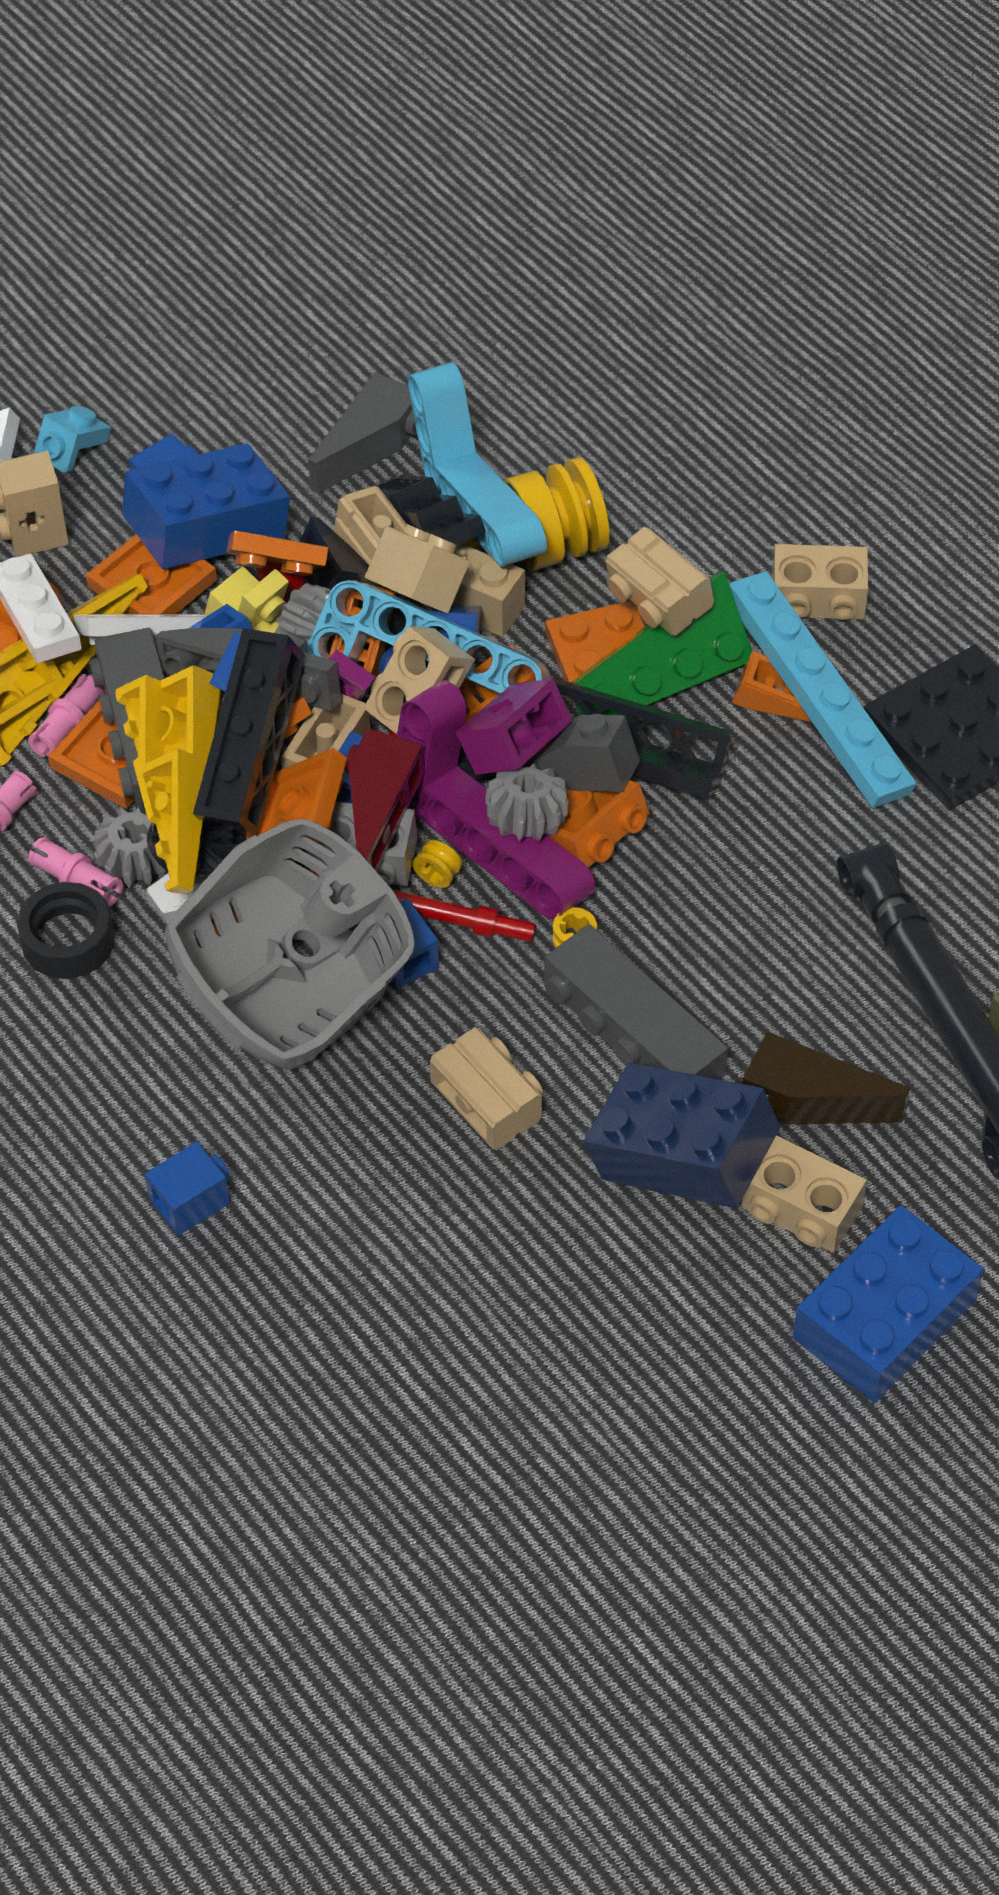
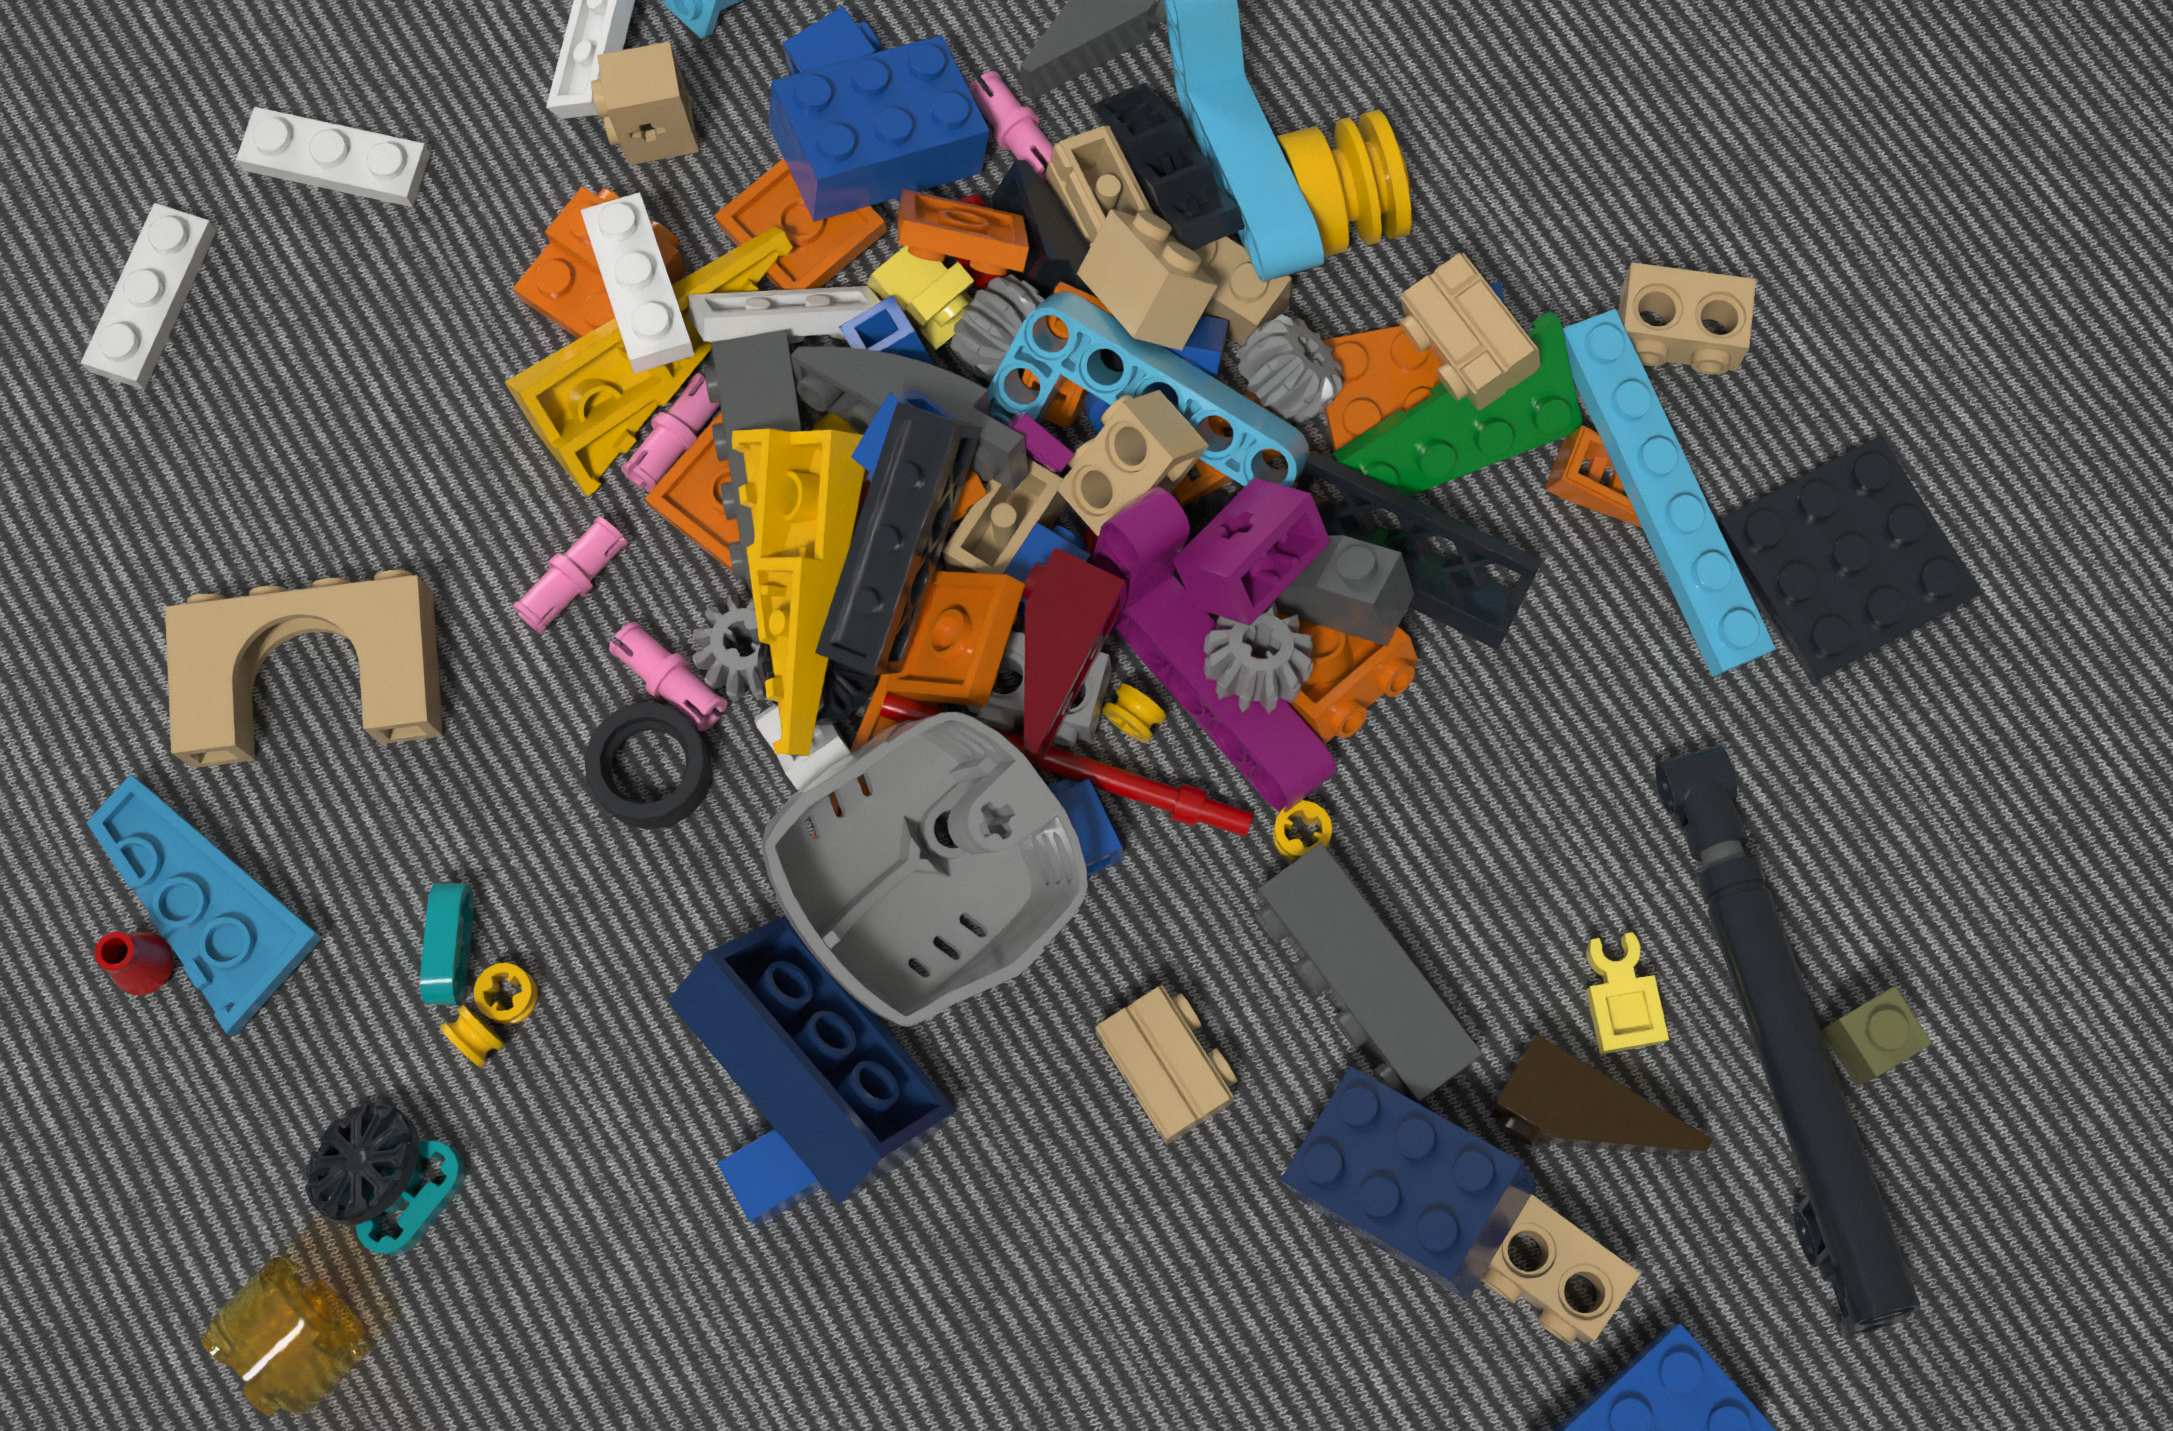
camera: 10 degrees right, 20 degrees up
(212, 1094) = (811, 1058): none -> dark blue brick
(306, 502) = (1013, 125): none -> bright pink pin
(530, 627) = (1290, 369): none -> light grey gear
(832, 1019) = (1624, 1008): none -> light yellow plate

